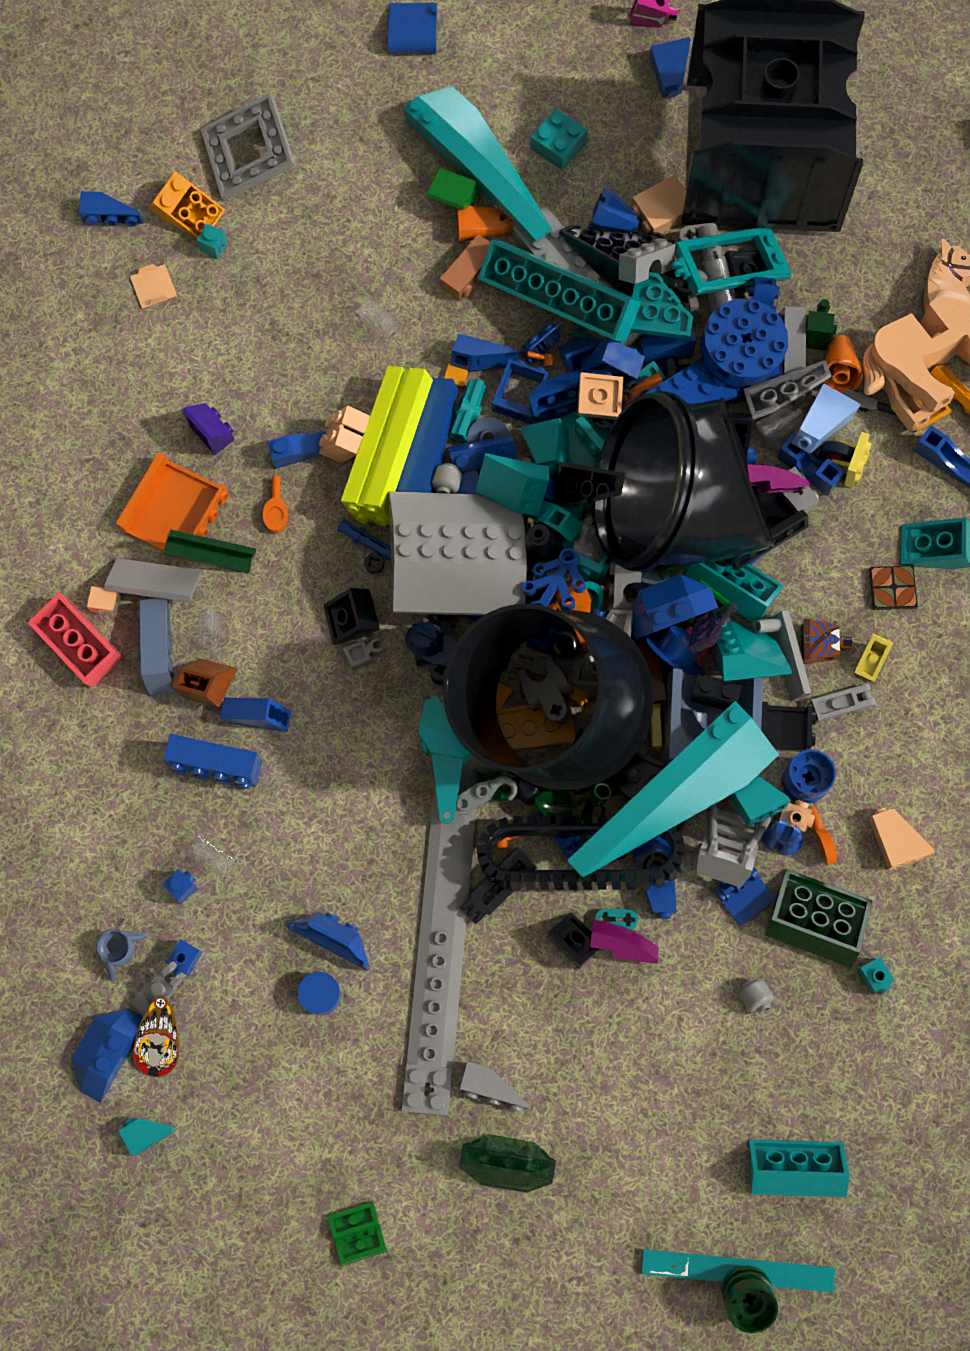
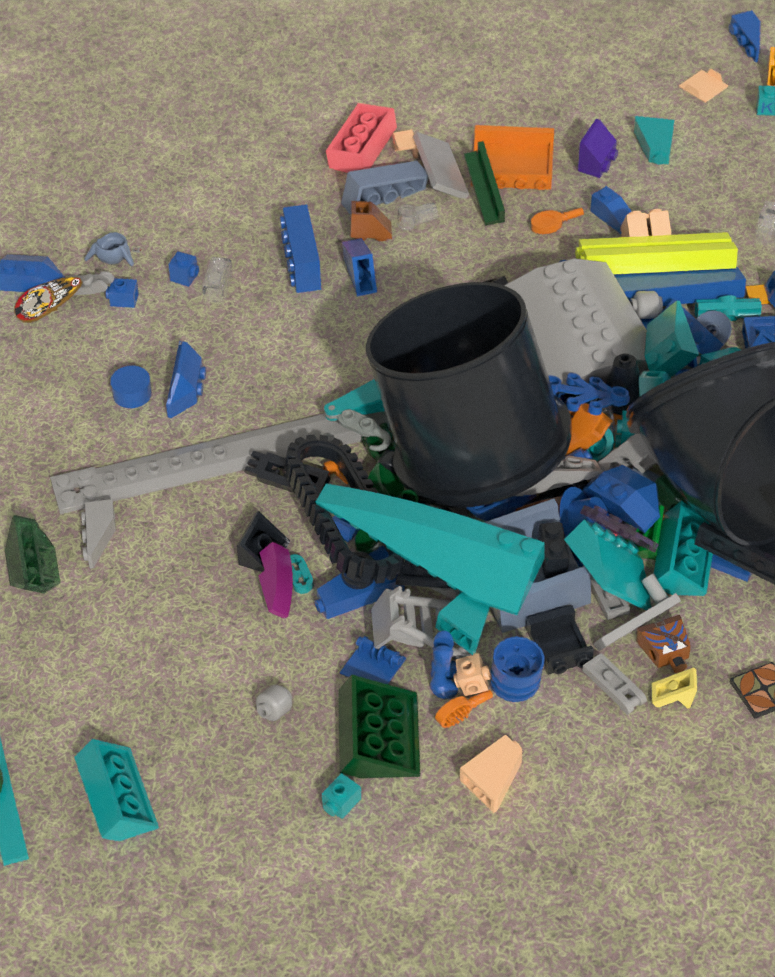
camera: 65 degrees right, 25 degrees down
(212, 365) = (655, 138): none -> teal slope

